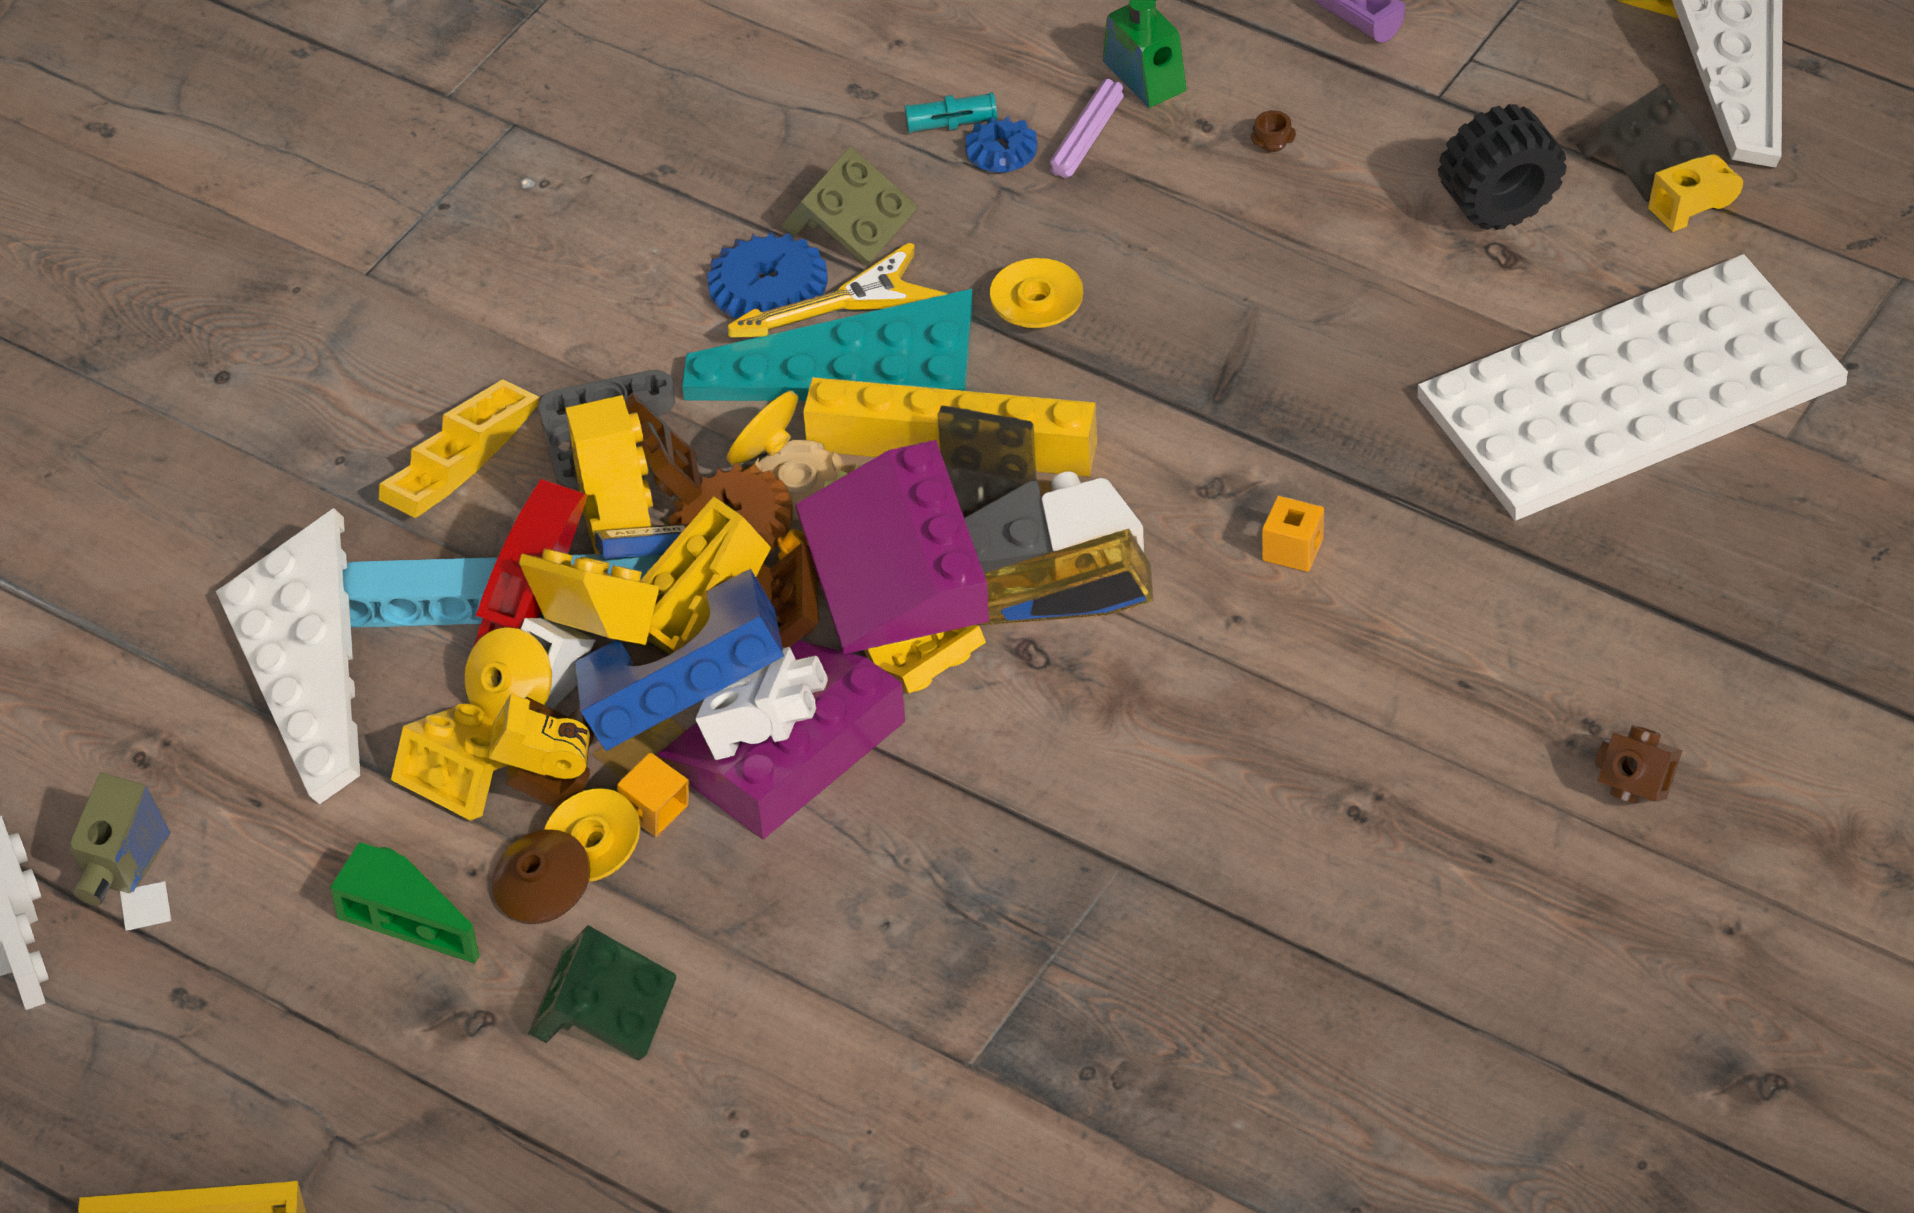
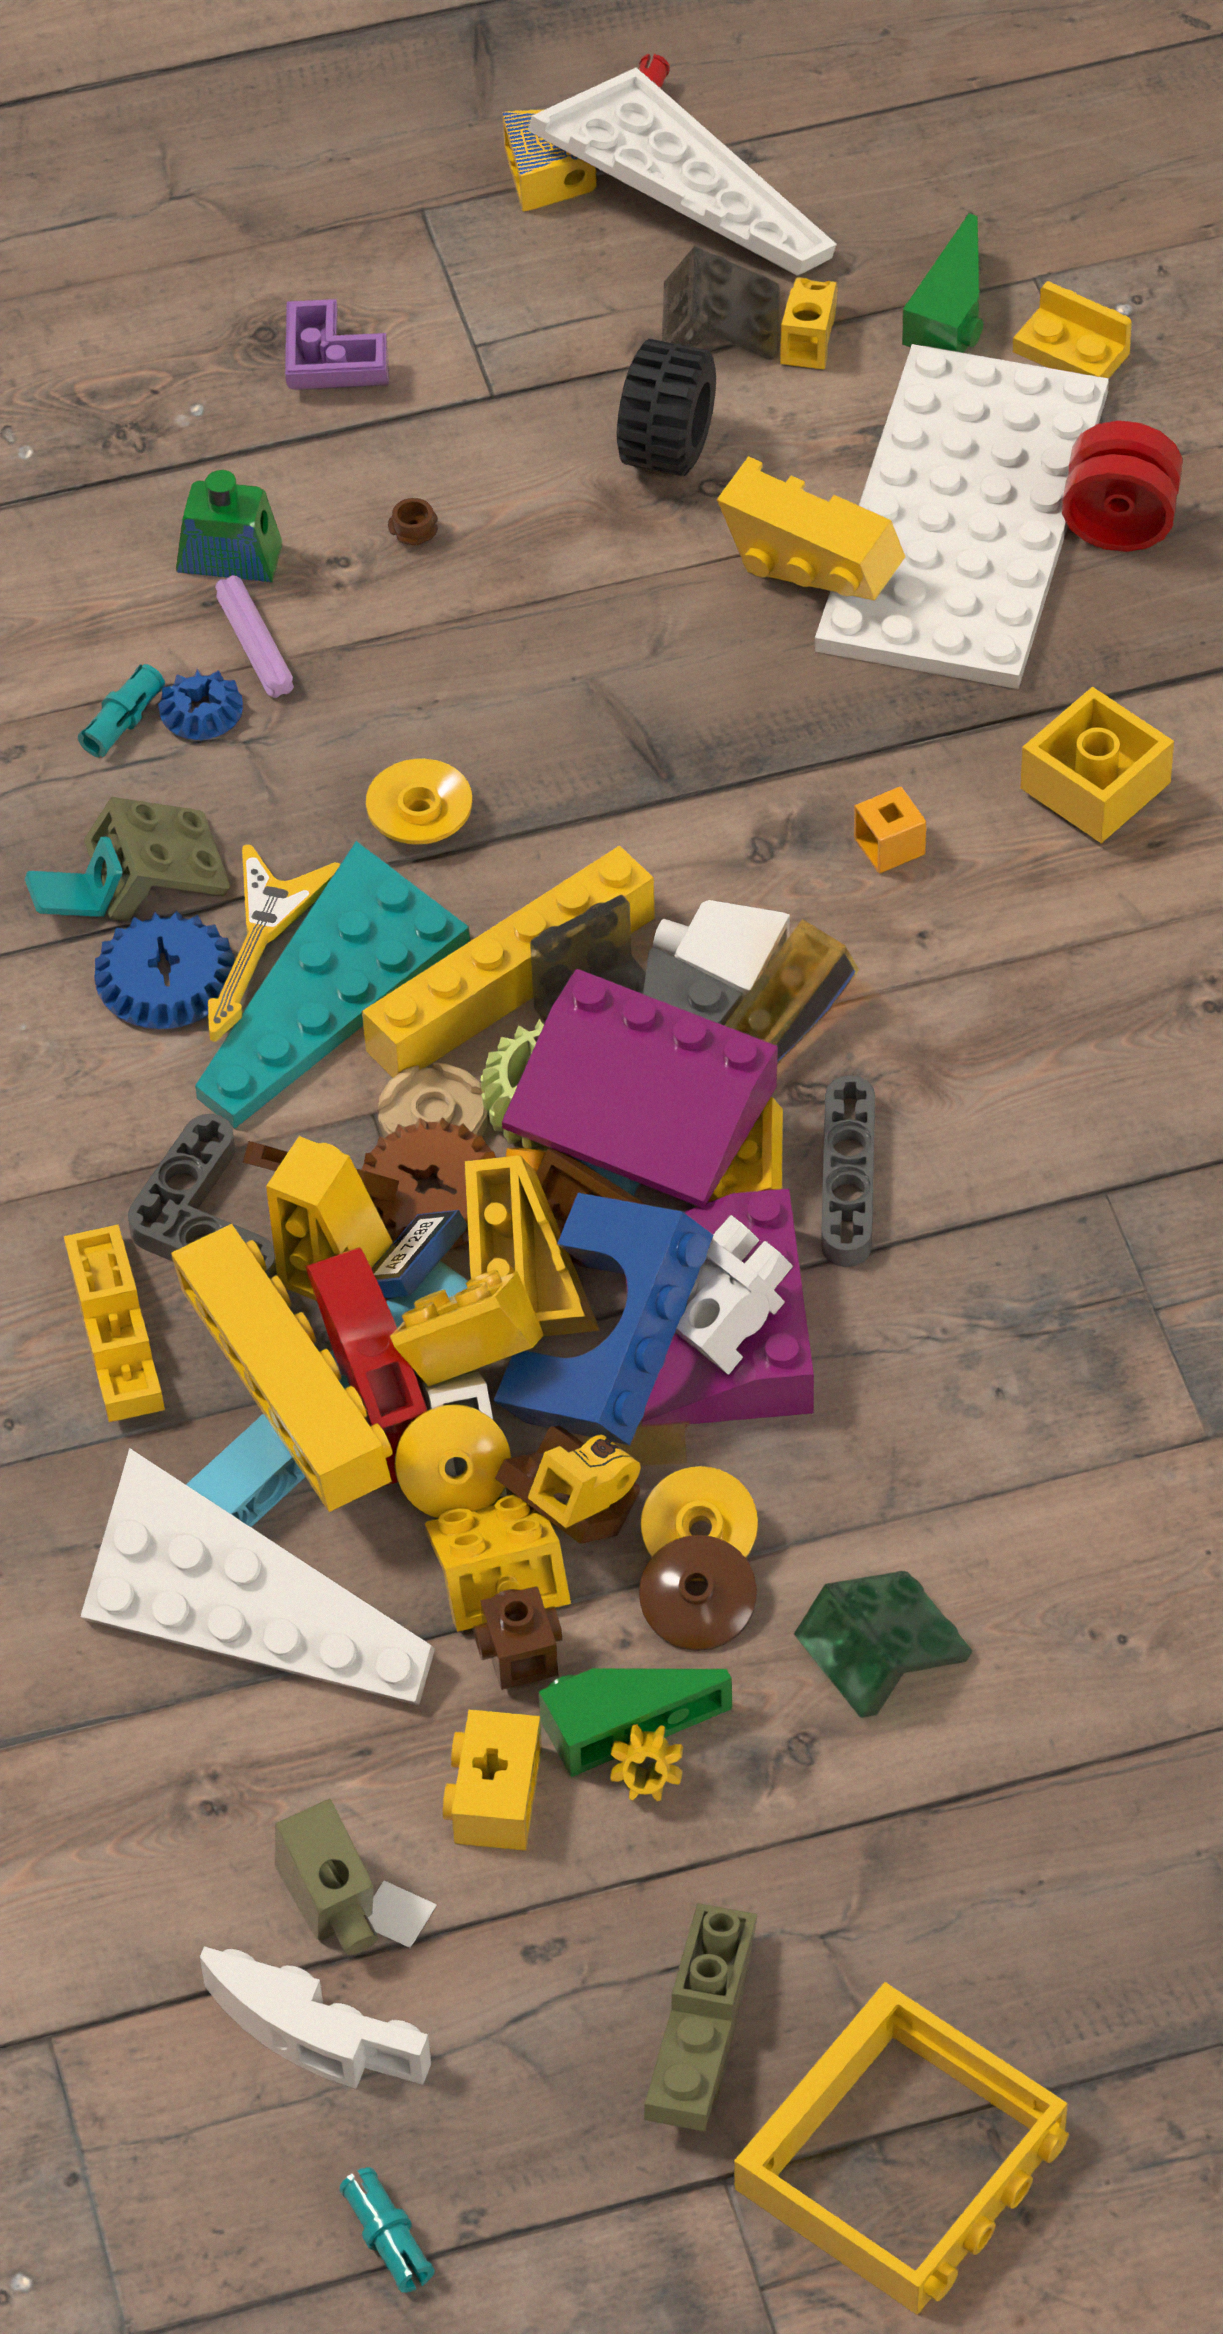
camera: 50 degrees left, 5 degrees up
(204, 1109) = (701, 2018): none -> olive slope
(281, 875) = (500, 1809): none -> yellow brick
(368, 941) = (651, 1779): none -> yellow gear
(401, 806) = (519, 1637): none -> reddish brown brick
(459, 555) = (283, 1368): none -> yellow brick
(655, 793) = (701, 1440): light orange piece -> none
(765, 431) = (372, 1088): yellow dish -> none
(774, 190) = (77, 892): none -> teal bracket
(975, 709) = (851, 1170): none -> dark grey beam
(1474, 596) = (1096, 764): none -> yellow brick
(1477, 308) = (806, 538): none -> yellow wedge
(1737, 436) = (1122, 486): none -> red wheel
(1811, 242) = (946, 303): none -> green slope
(1863, 330) = (1074, 334): none -> yellow bracket

